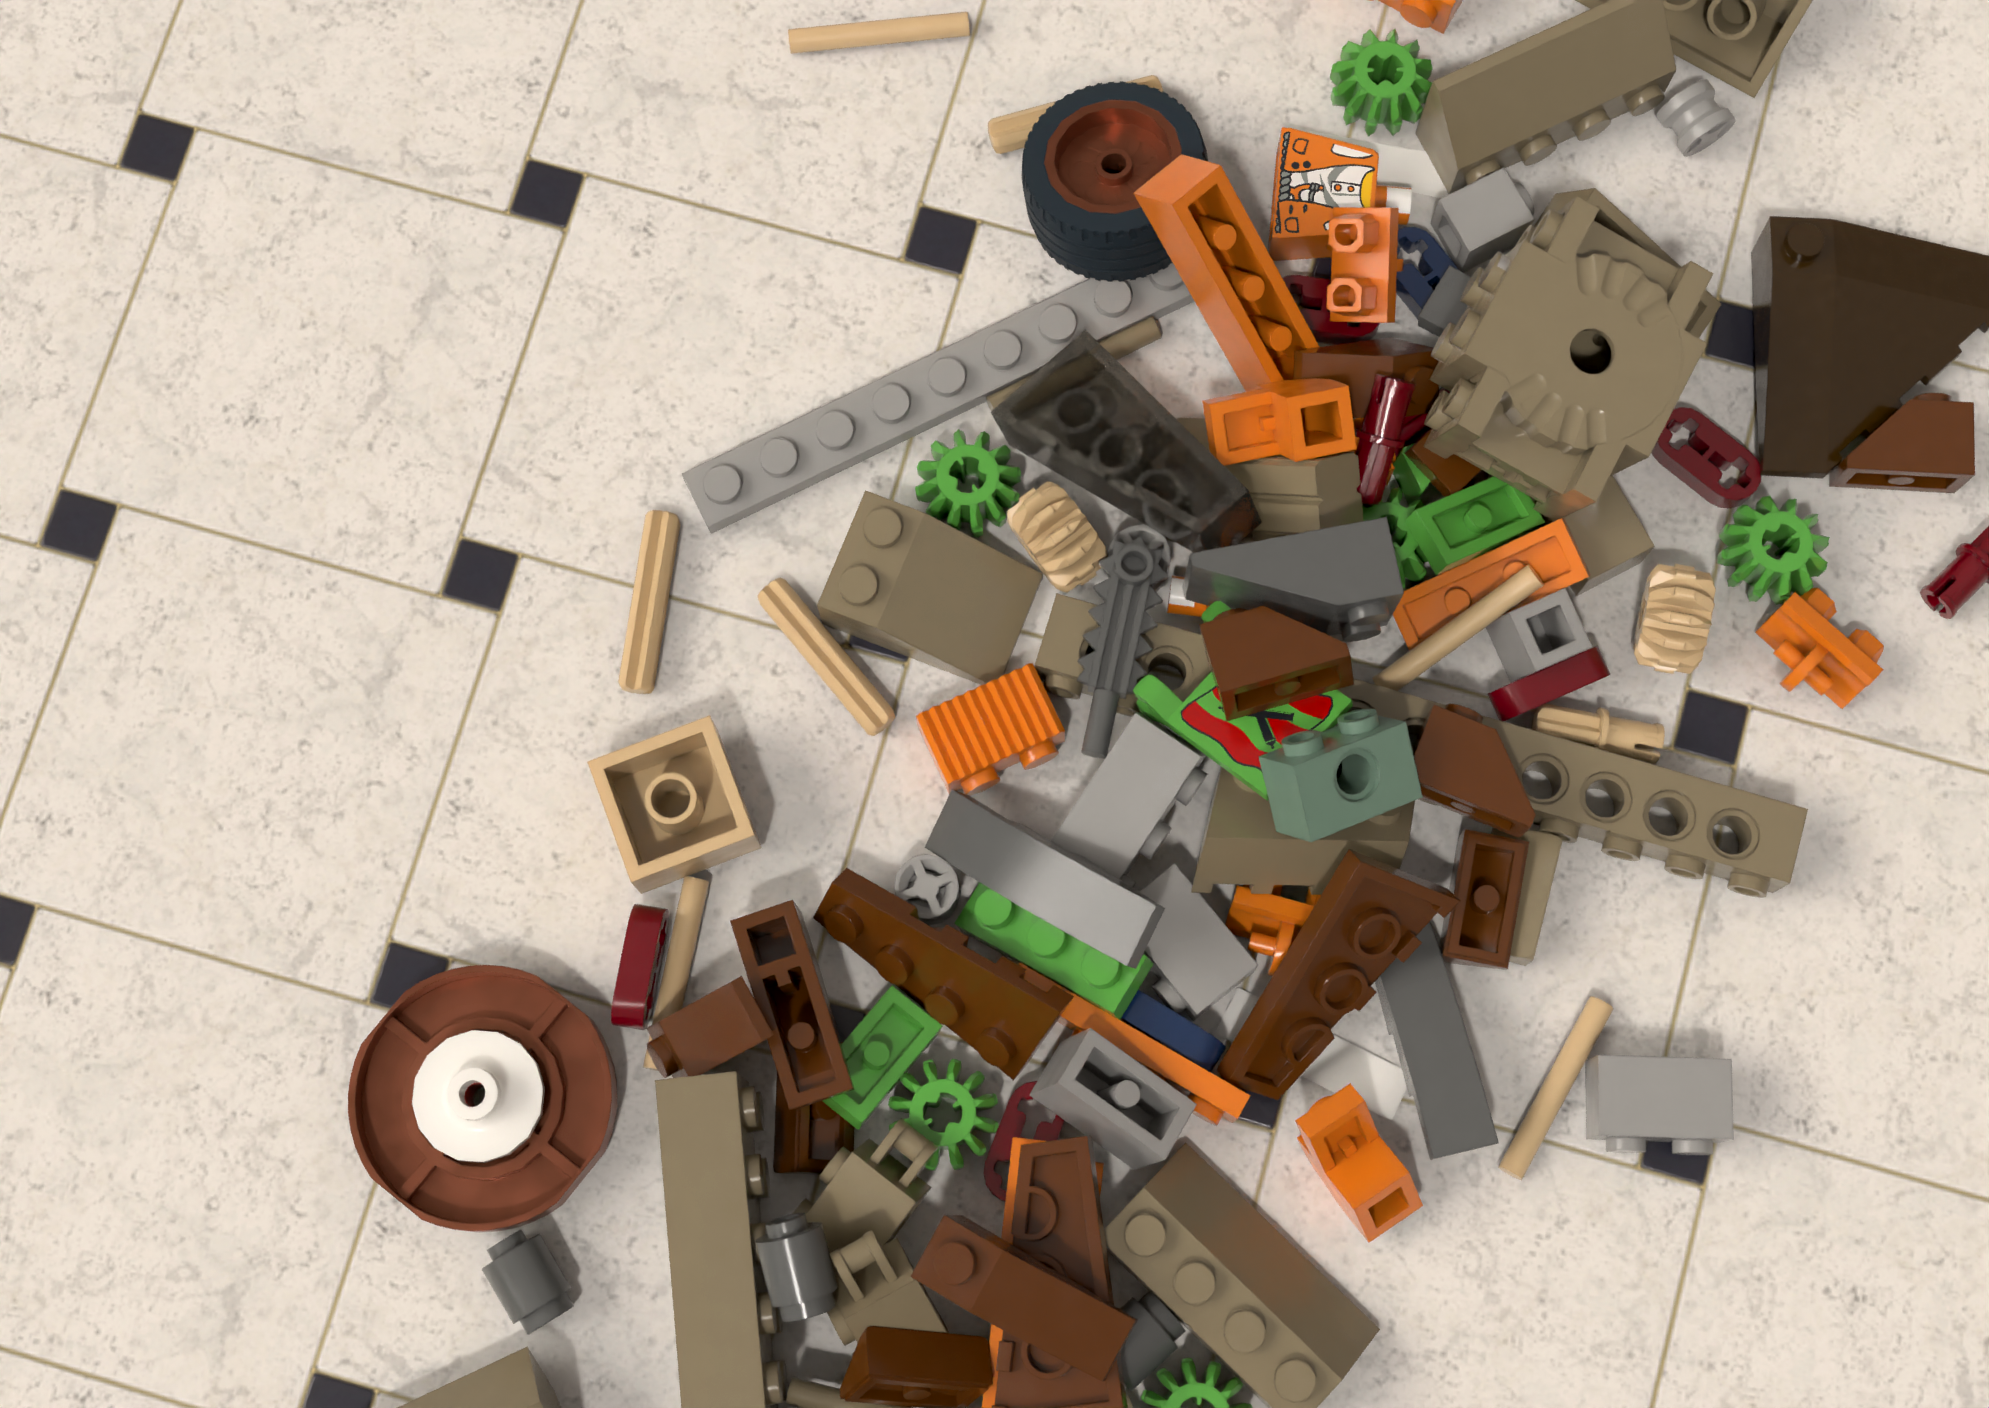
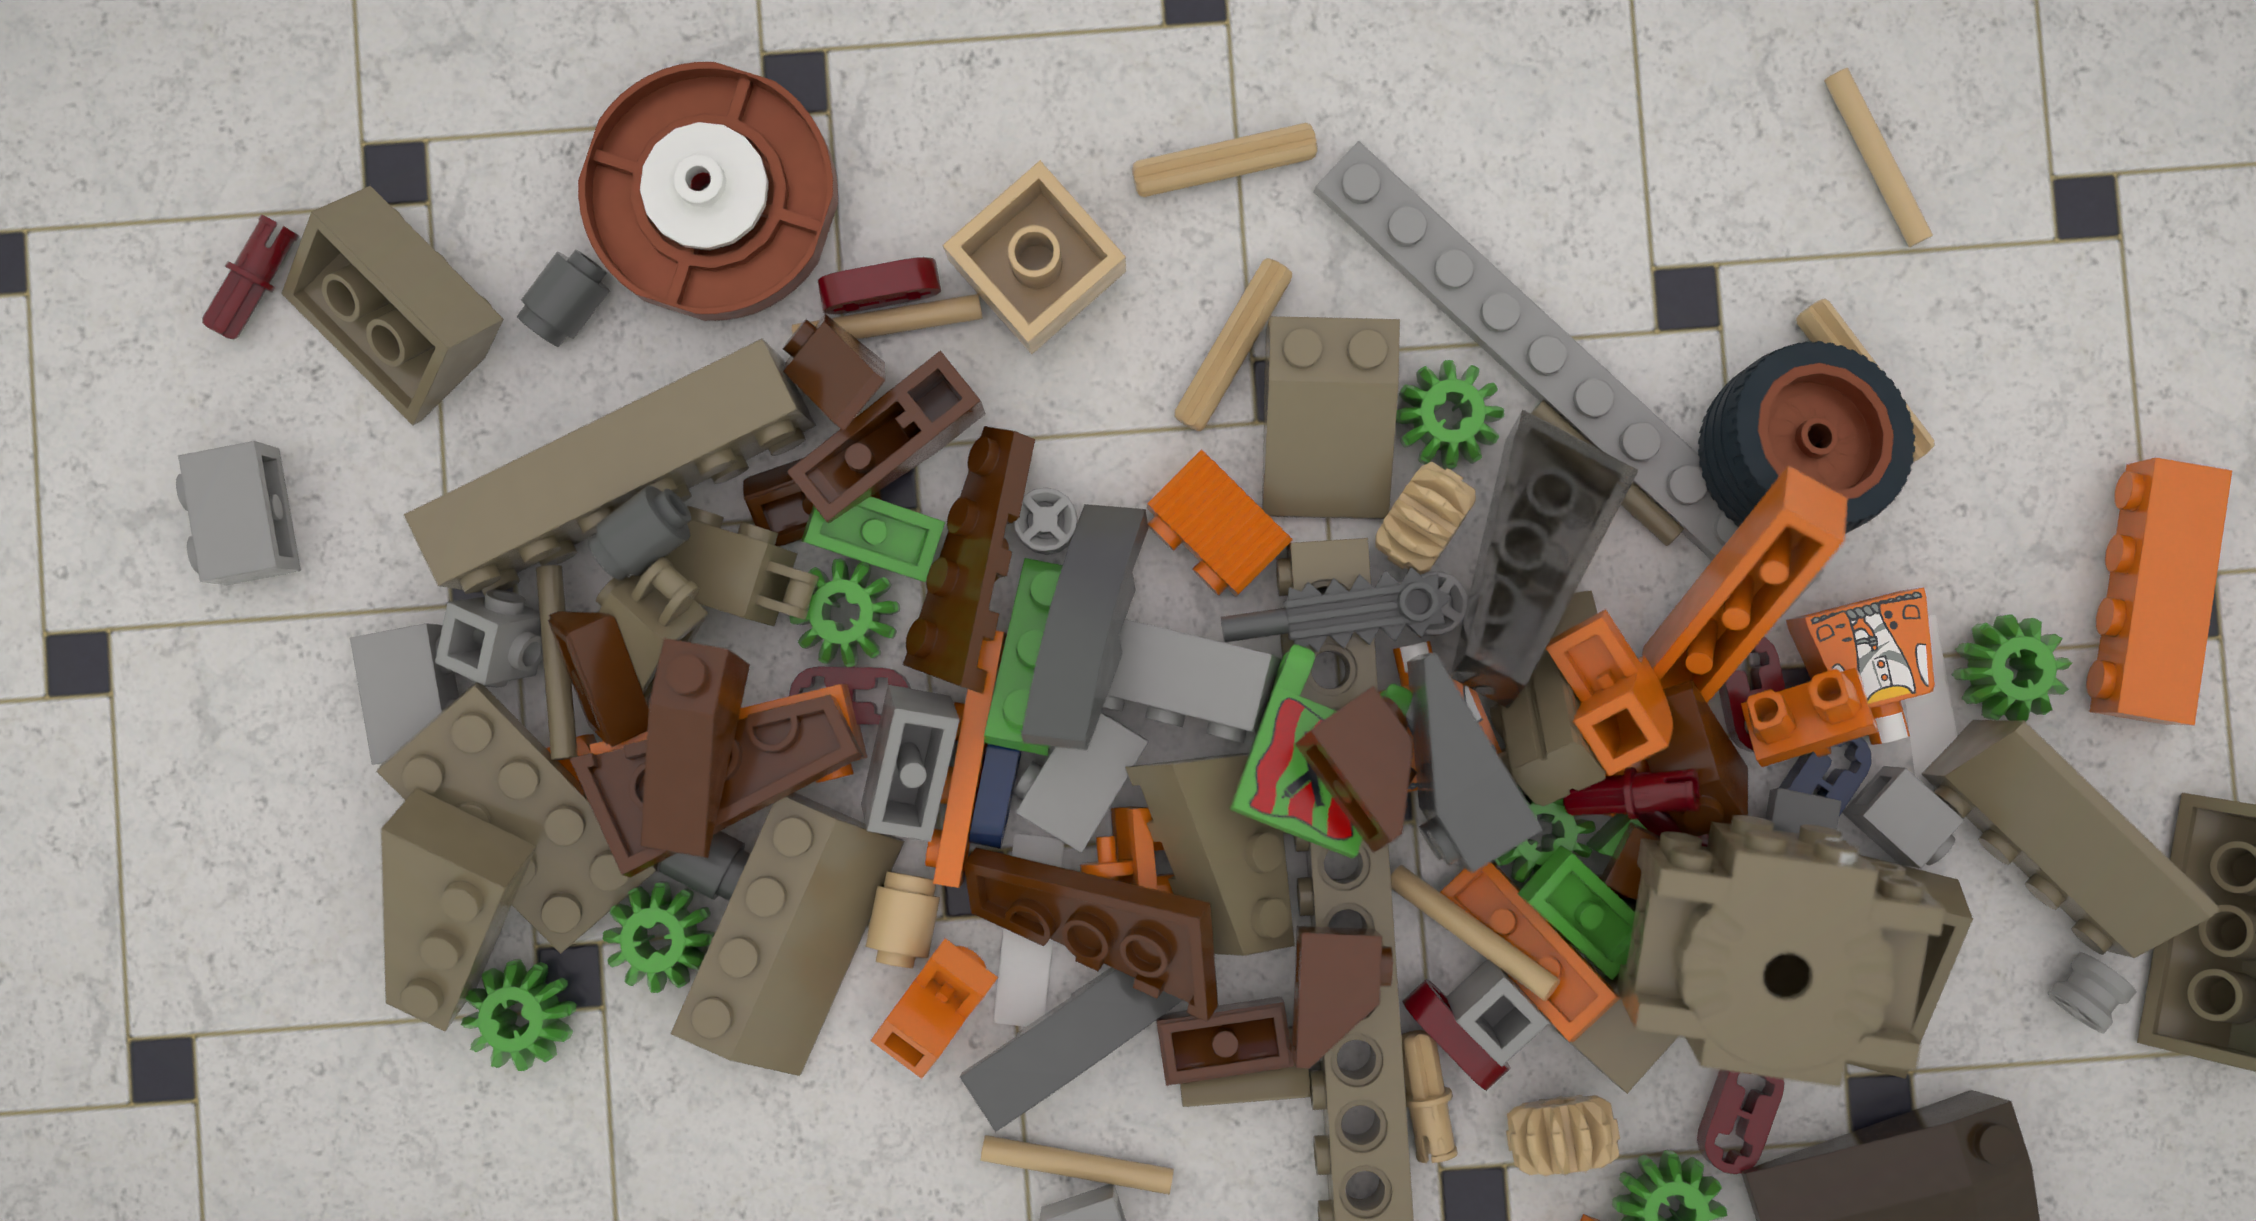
camera: 70 degrees right, 10 degrees up
(1261, 1167) = (903, 919): none -> tan brick
(1374, 775) = (1286, 905): sand green brick -> none

